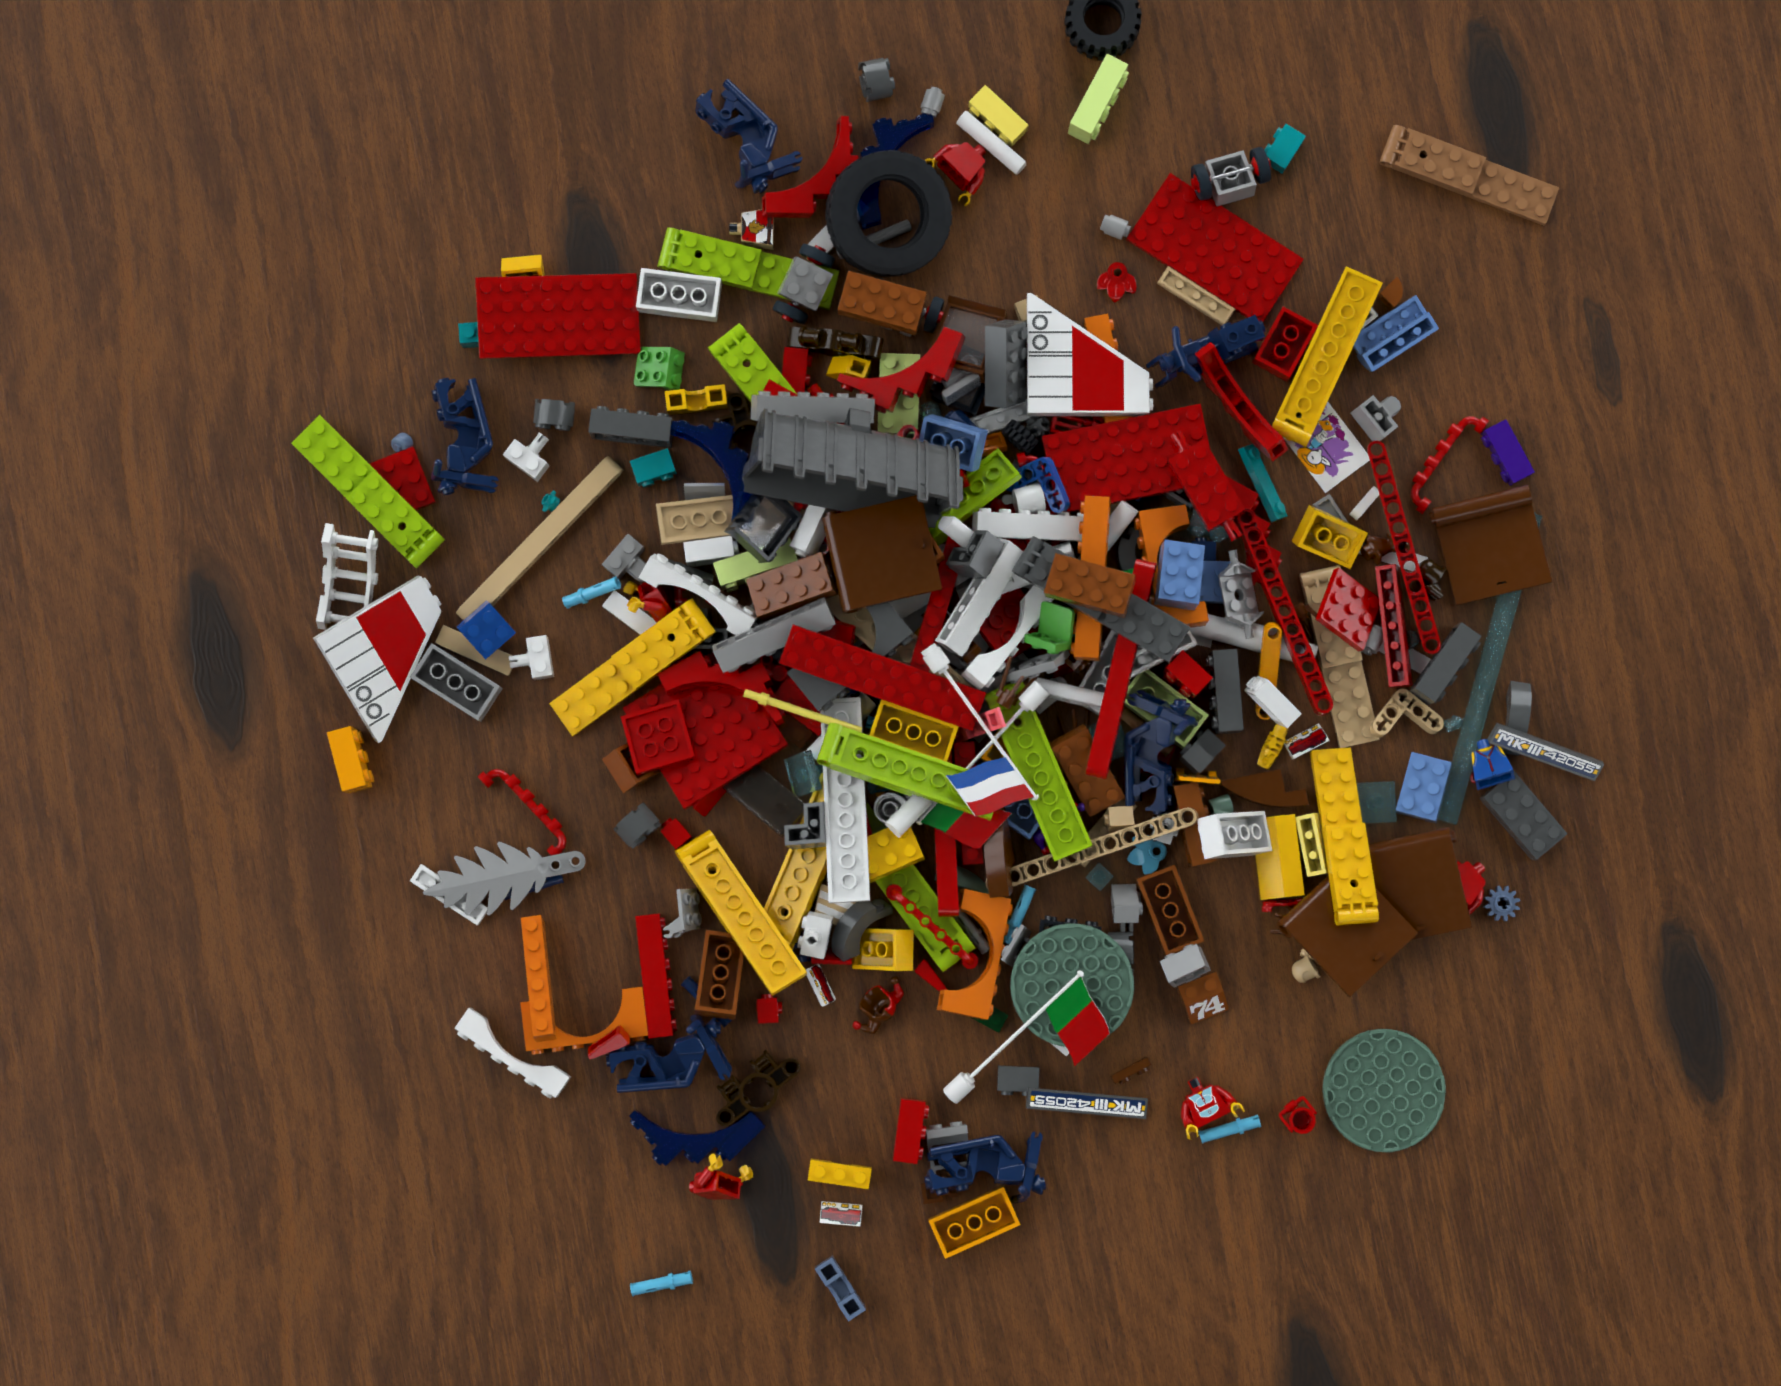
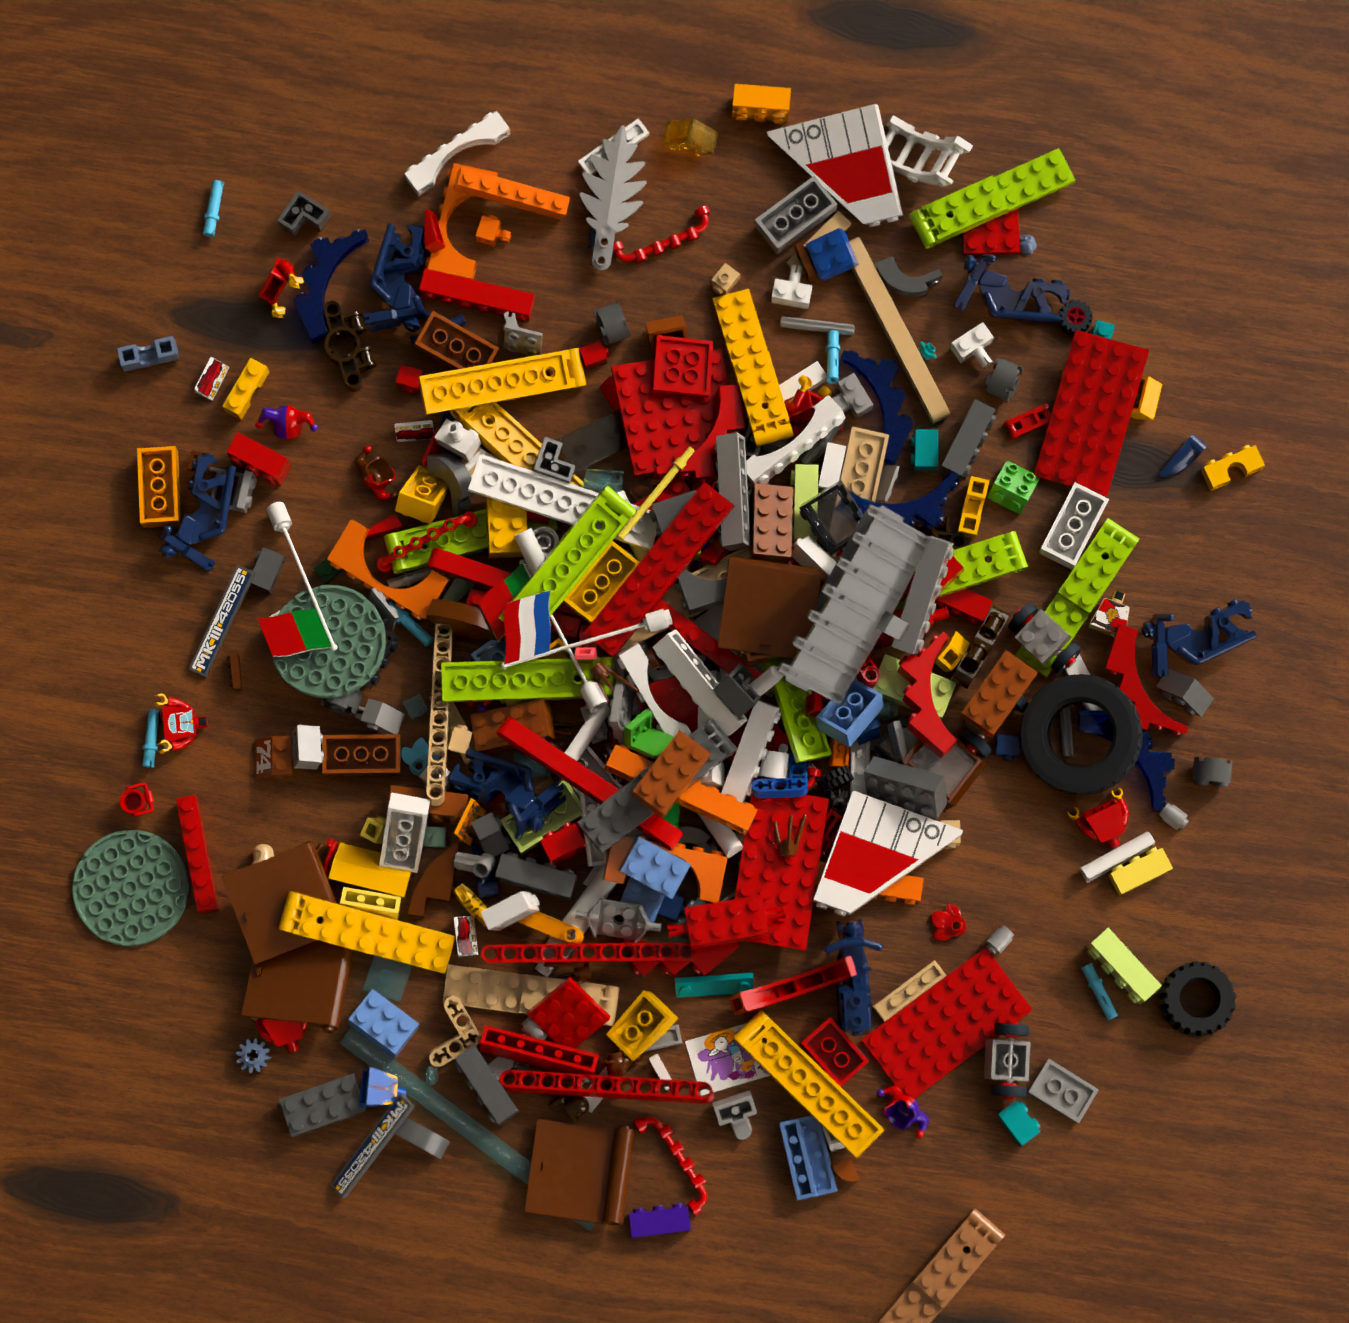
camera: 110 degrees right, 5 degrees down
(411, 819) = (690, 135): none -> clear yellow brick
(461, 360) = (1079, 312): none -> black wheel
(489, 553) = (903, 284): none -> dark grey arch
(498, 658) = (803, 257): none -> reddish brown plate
(549, 730) = (725, 280): none -> tan brick
(563, 622) = (816, 325): none -> light grey axle
(564, 212) = (1185, 456): none -> dark blue piece
(573, 175) = (1247, 459): none -> yellow arch
(583, 988) = (490, 230): none -> orange brick
(586, 377) = (1028, 421): none -> red plate
(615, 519) = (890, 399): none -> clear blue arch
(630, 1188) = (302, 210): none -> dark grey brick
(807, 130) = (1185, 692): none -> dark grey brick
(858, 1118) = (286, 421): none -> piece
(924, 281) = (1008, 747): none -> dark blue brick
(1106, 453) = (787, 847): none -> reddish brown plant
(1122, 122) = (1099, 991): none -> medium azure pin
(1235, 750) = (477, 864): none -> light grey piece
(1236, 117) = (1063, 1091): none -> light grey plate
(1238, 868) = (374, 829): none -> light yellow brick
(1239, 745) = (486, 886): none -> dark blue piece
(1313, 260) = (903, 1110): none -> dark purple piece
(1327, 1035) = (197, 854): none -> red brick

